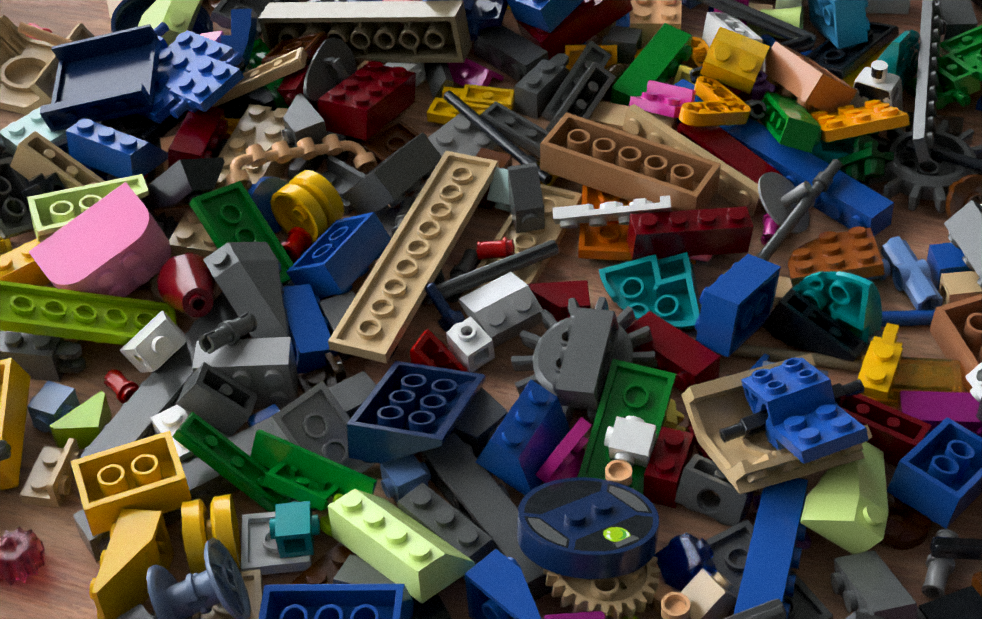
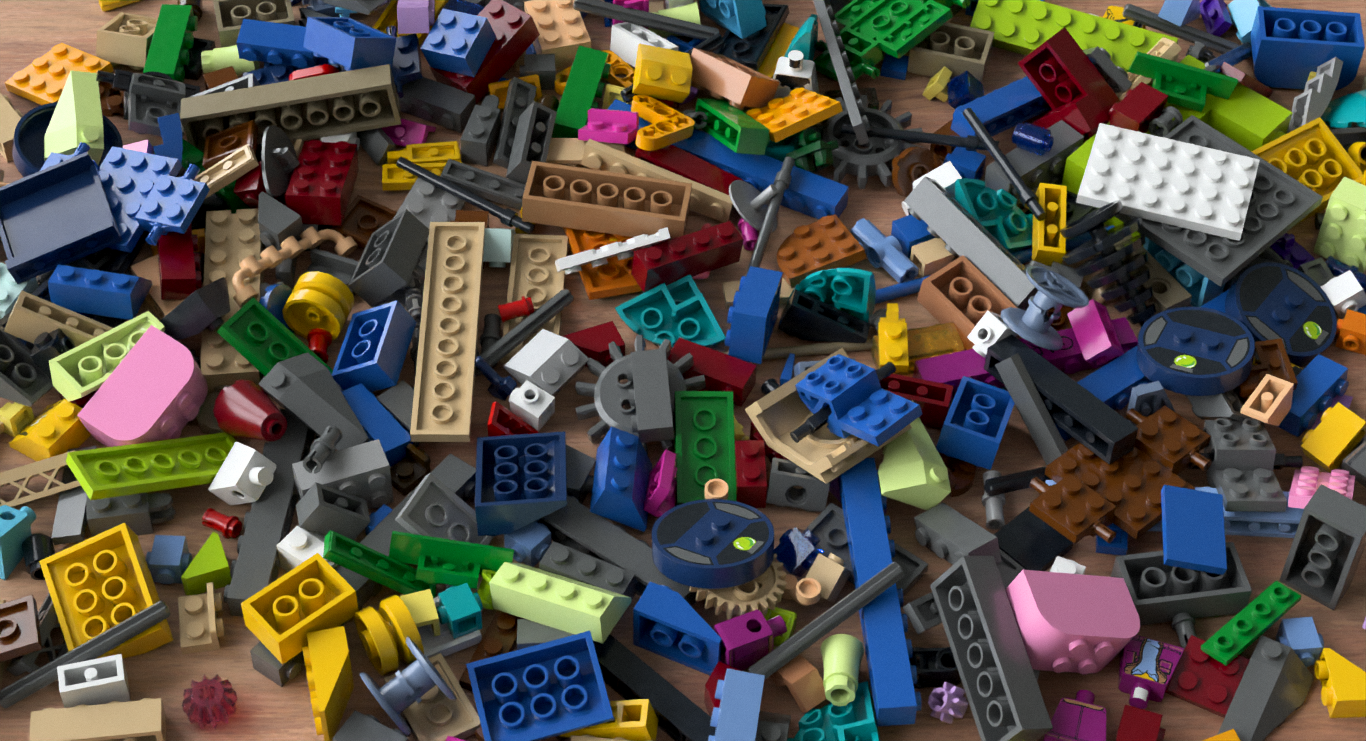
camera: 25 degrees left, 5 degrees up
(252, 516) = (423, 609): none -> light yellow panel
(526, 198) = (526, 254): dark grey slope -> none
(631, 440) = (716, 459): white brick -> none

